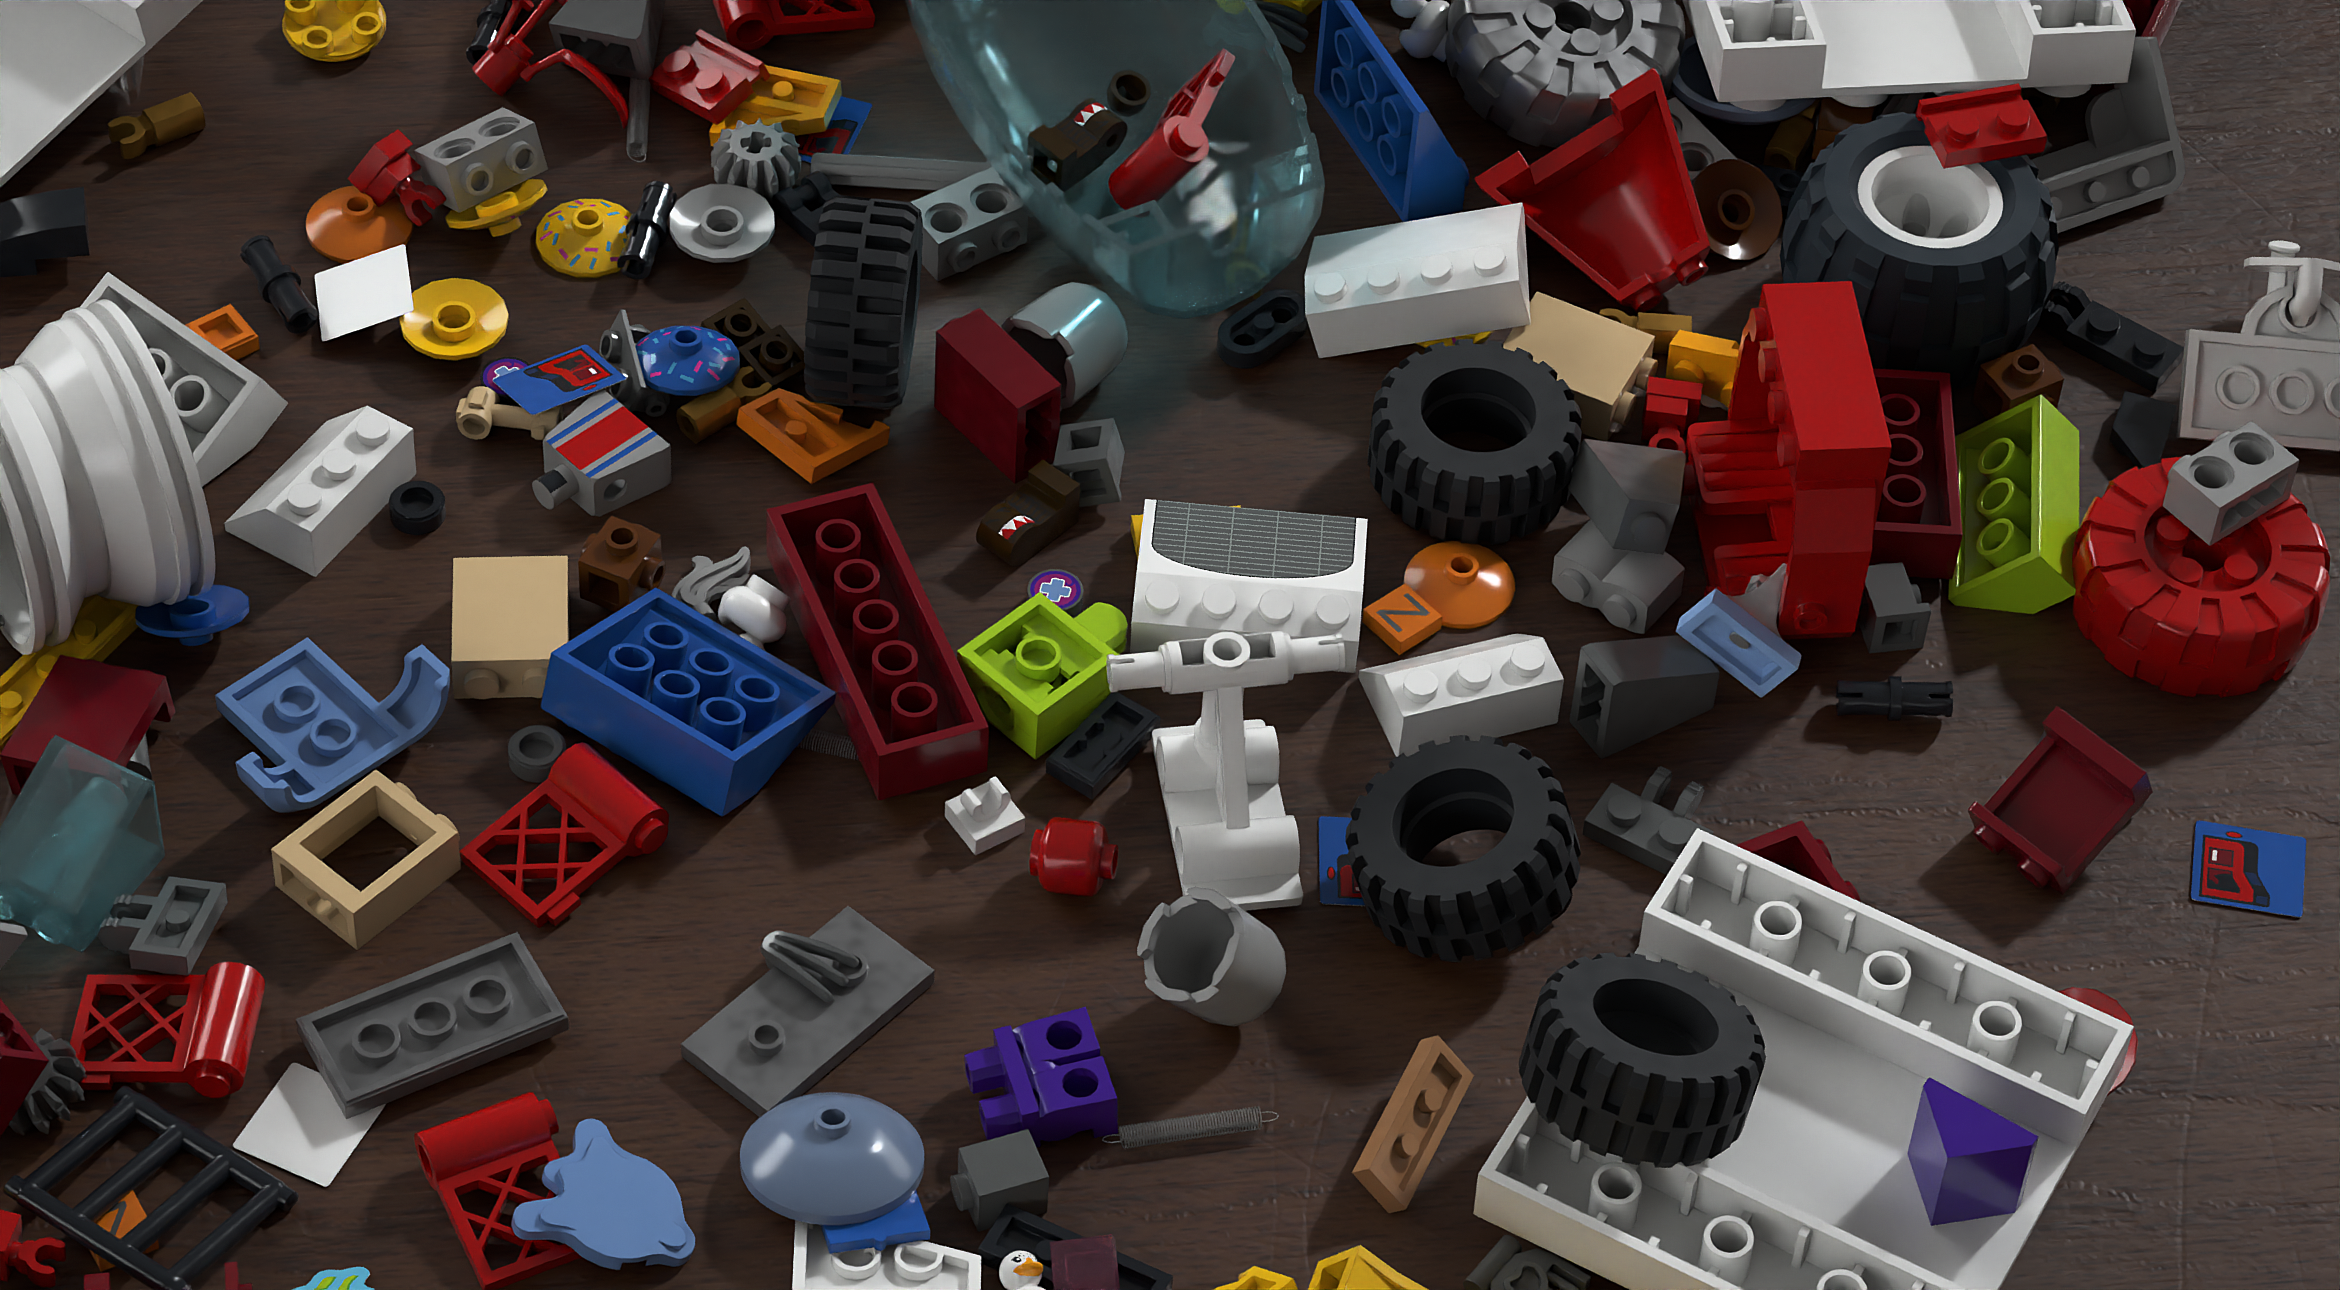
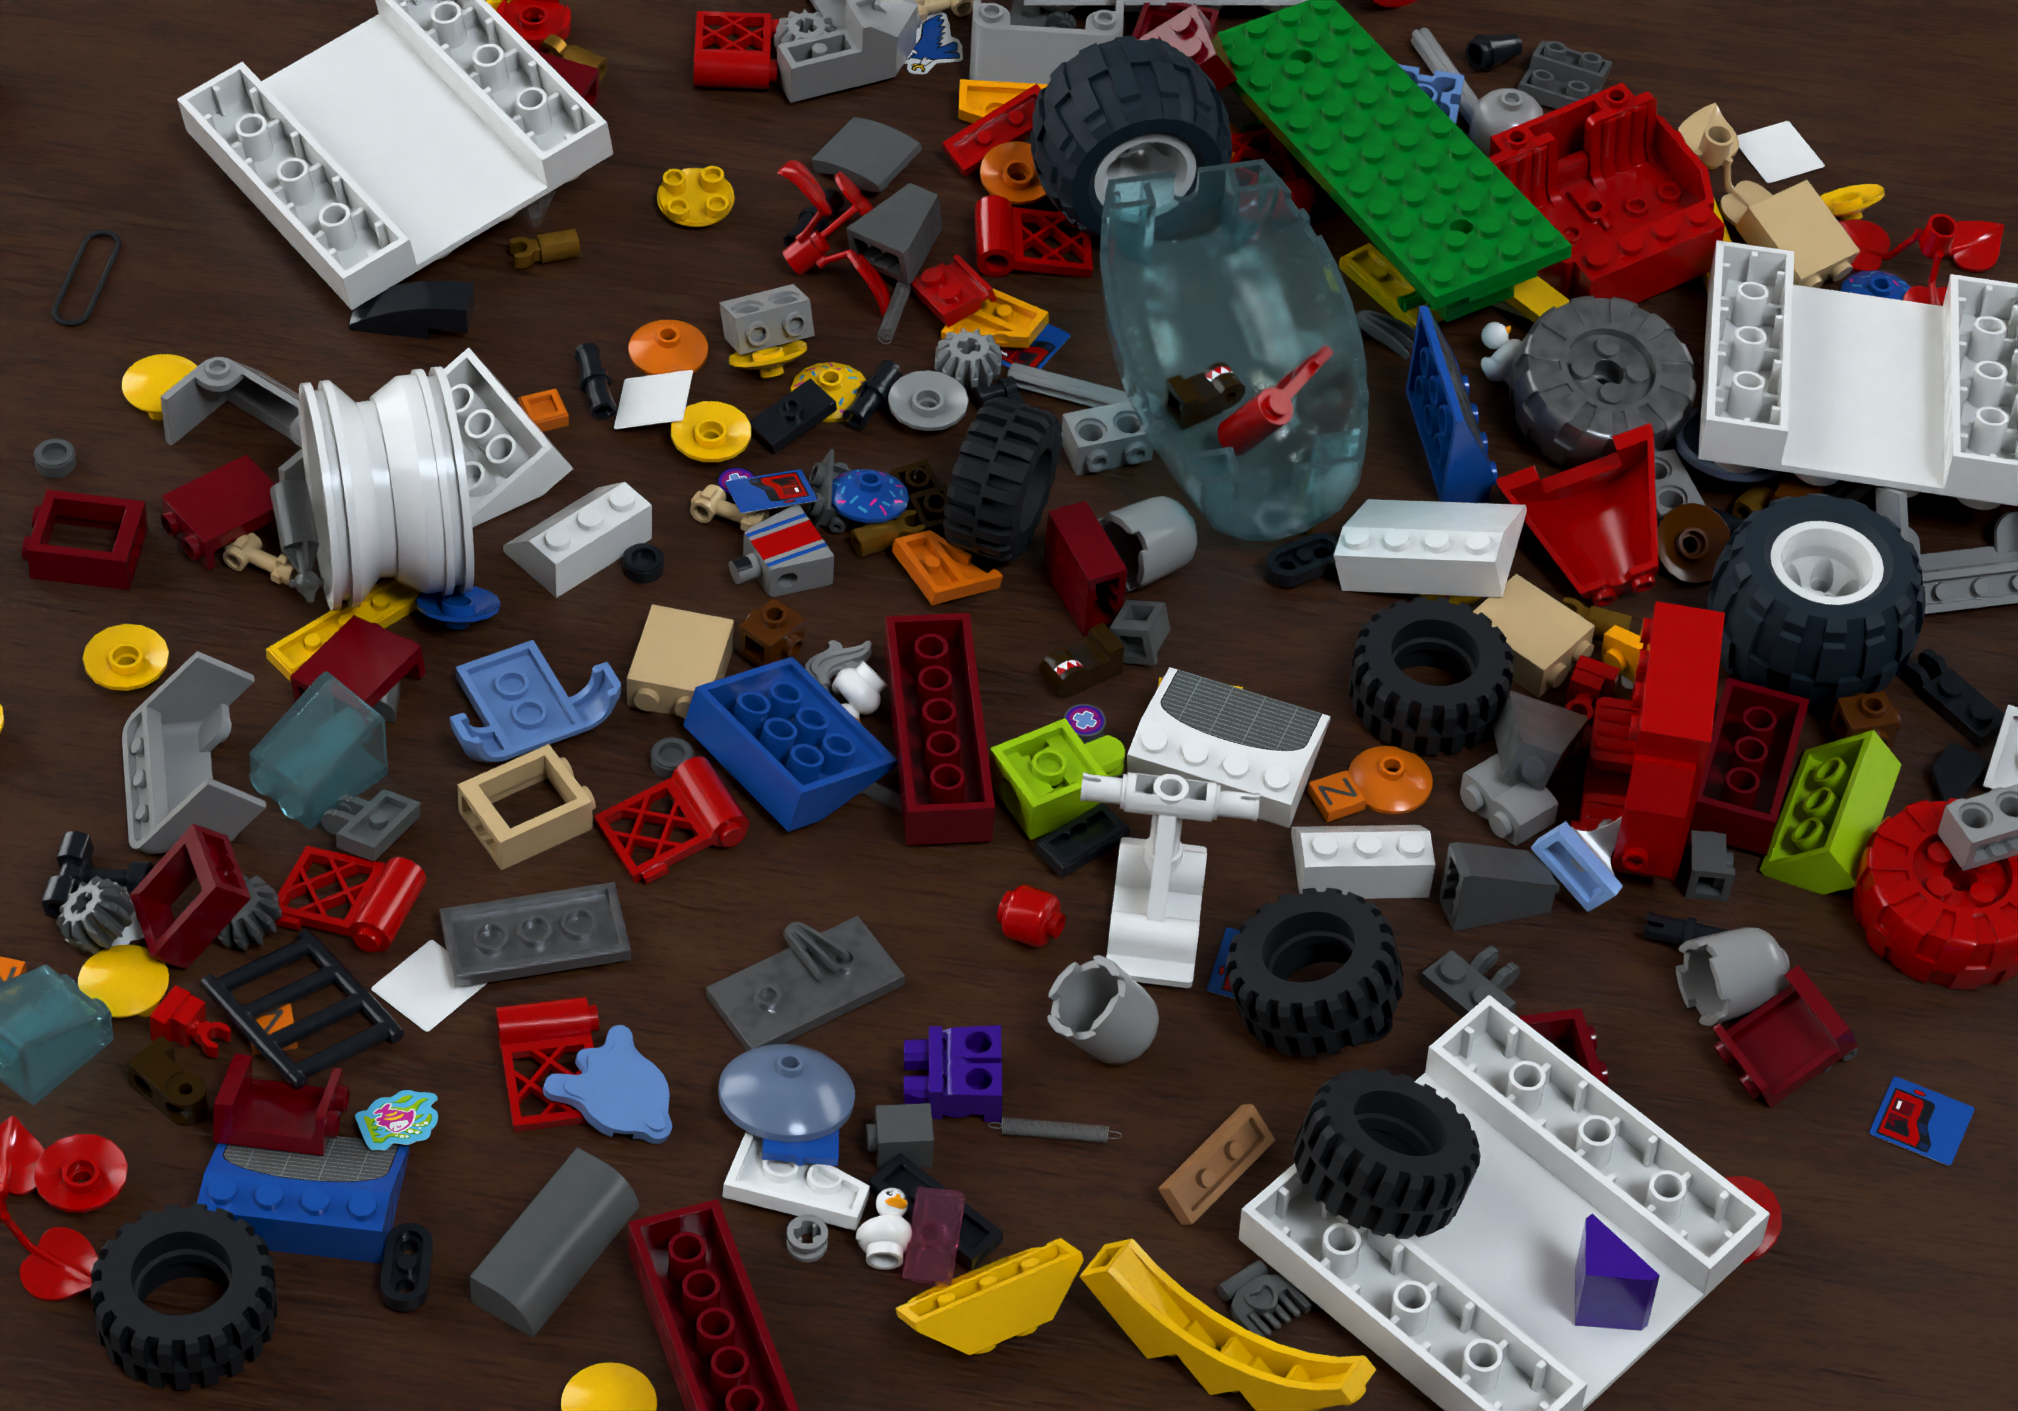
camera: 15 degrees right, 0 degrees up
(390, 172) = (697, 315): red piece -> none
(553, 277) = (792, 416): none -> black plate
(985, 816) = (979, 873): white tile -> none
(1128, 93) = (1259, 363): dark brown hinge -> none
(1967, 736) = (1731, 973): none -> light grey cylinder
(1981, 126) = (1882, 516): red plate -> none

